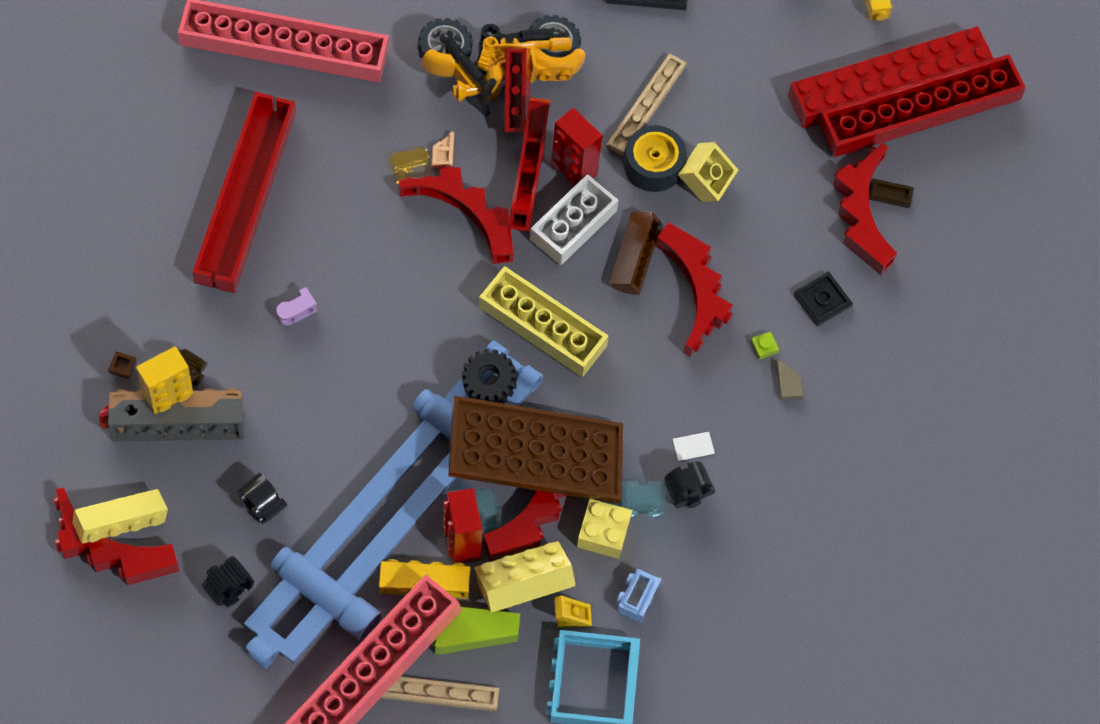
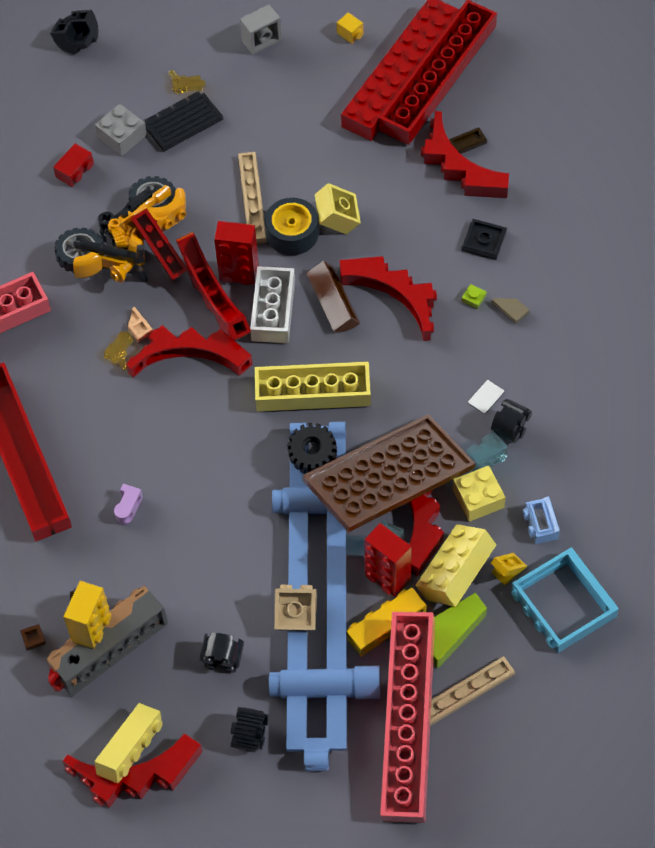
camera: 30 degrees left, 5 degrees down
(353, 507) = (295, 608): none -> tan plate

